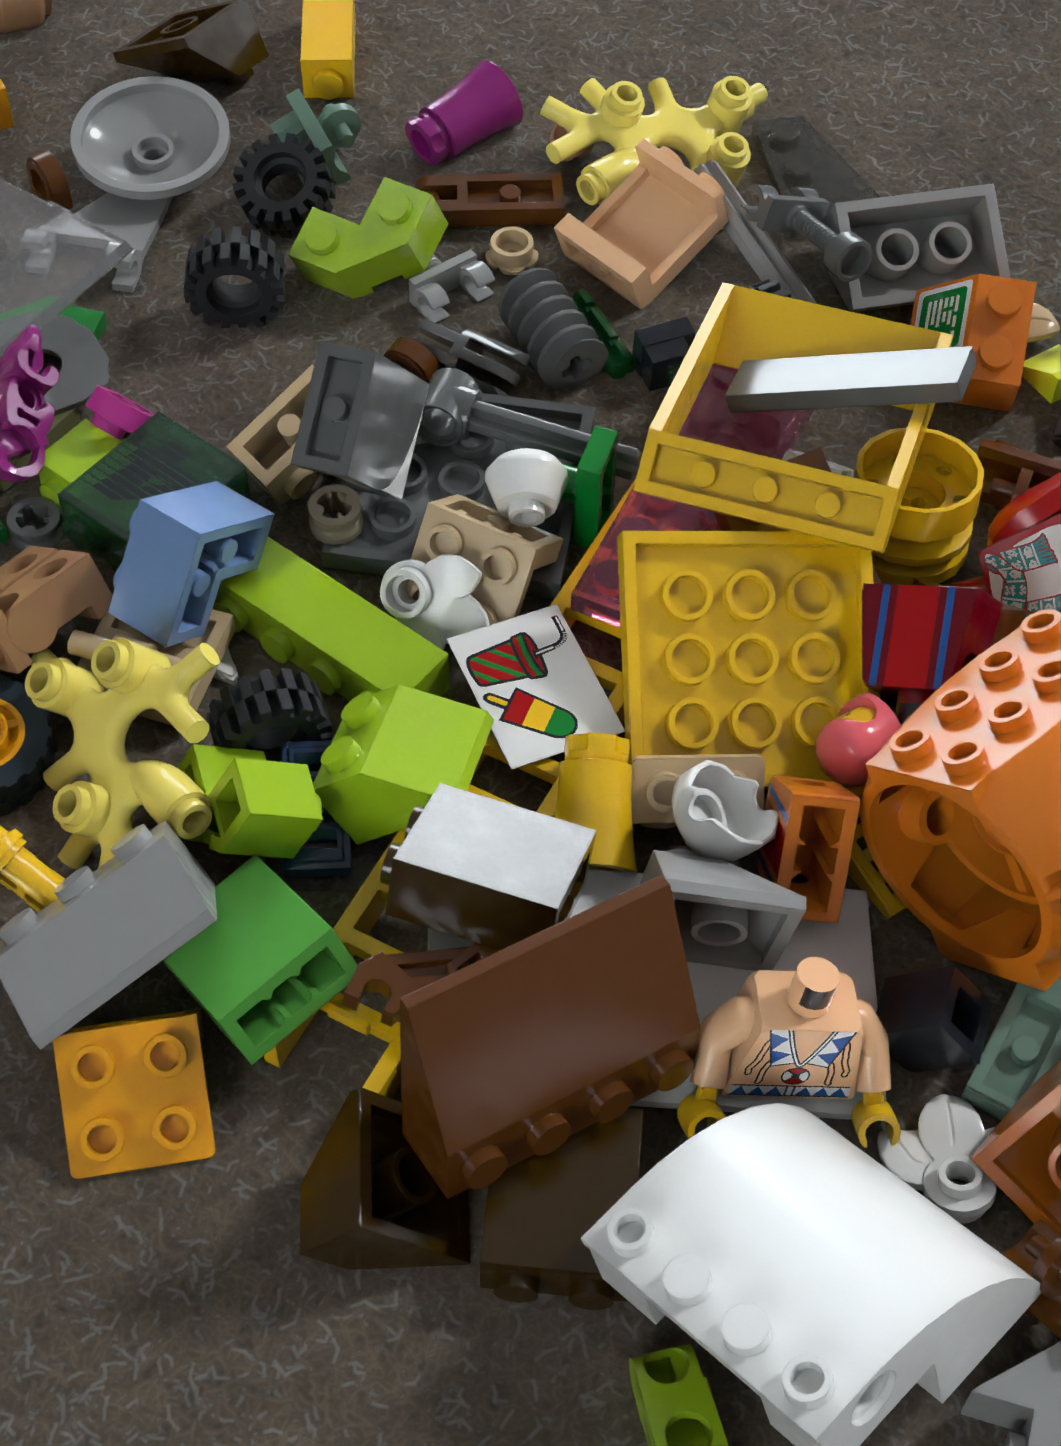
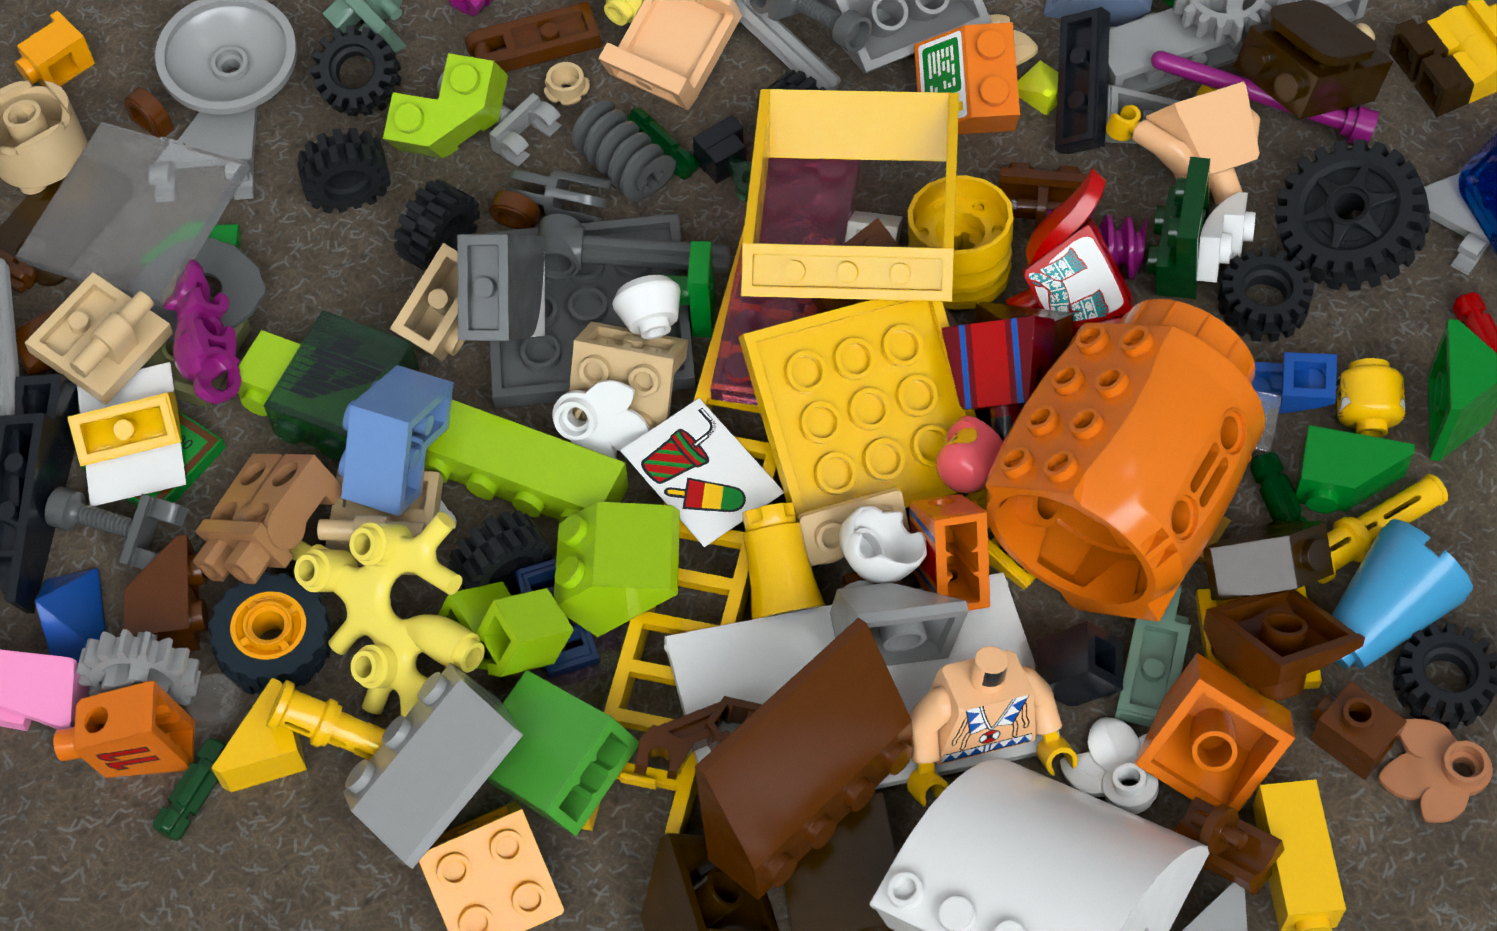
camera: 10 degrees left, 5 degrees up
(43, 512) = (245, 417): dark grey bush -> none
(116, 413) = (288, 318): dark pink plate -> none
(299, 344) = (434, 219): none -> black tyre
(331, 499) = (497, 378): dark tan bush -> none
(485, 868) = (715, 639): brick -> none
(852, 380) = (888, 154): tile -> none

